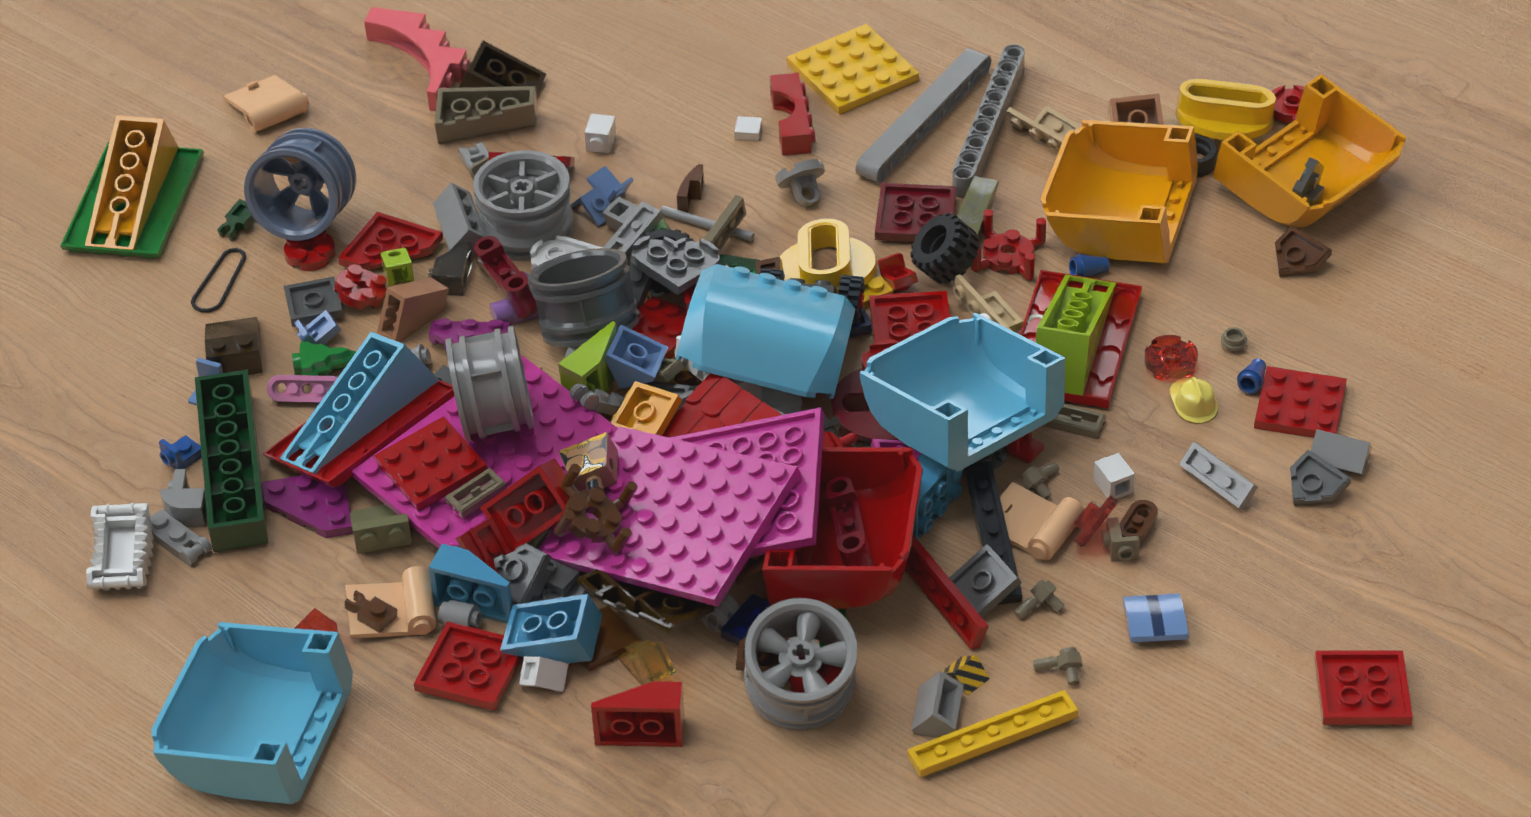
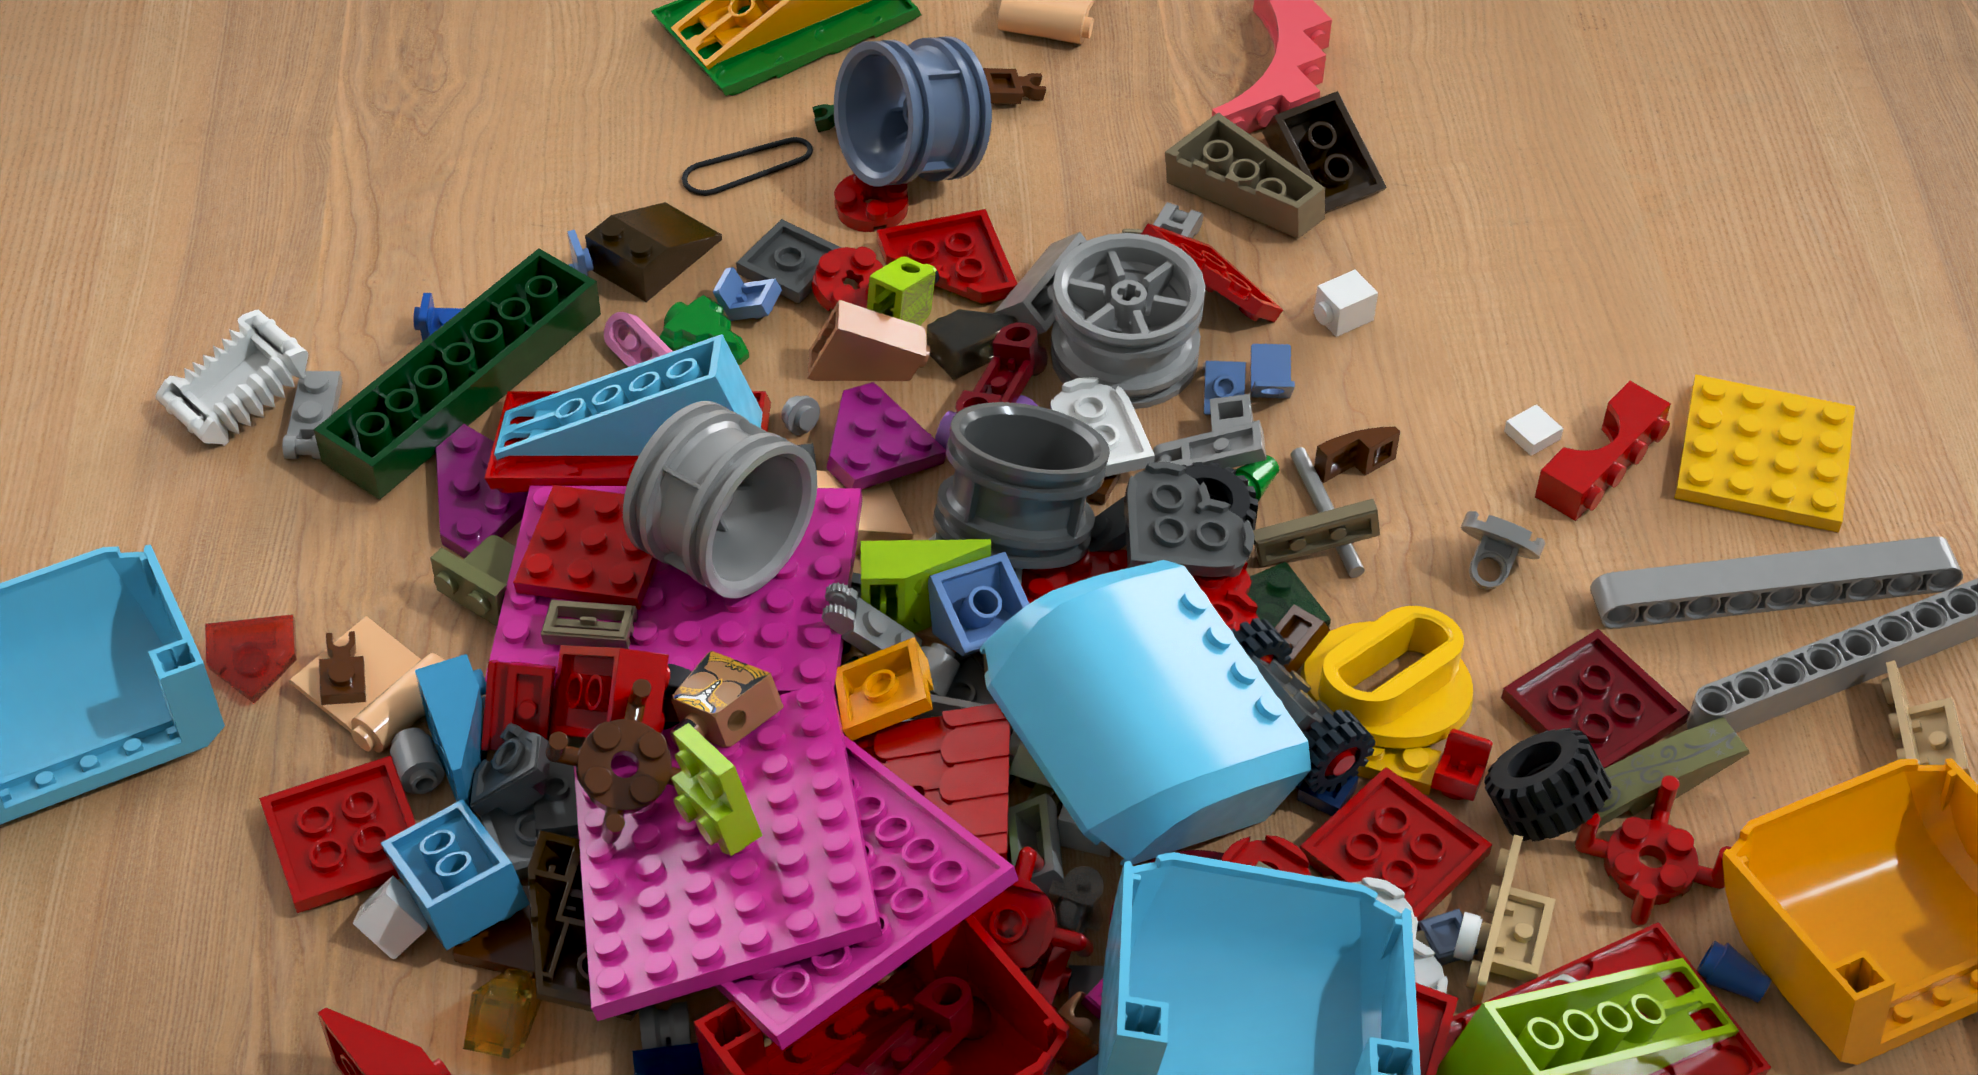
camera: 45 degrees right, 5 degrees up
(183, 502) = (356, 371): light grey brick -> none
(659, 481) = (712, 794): none -> lime plate

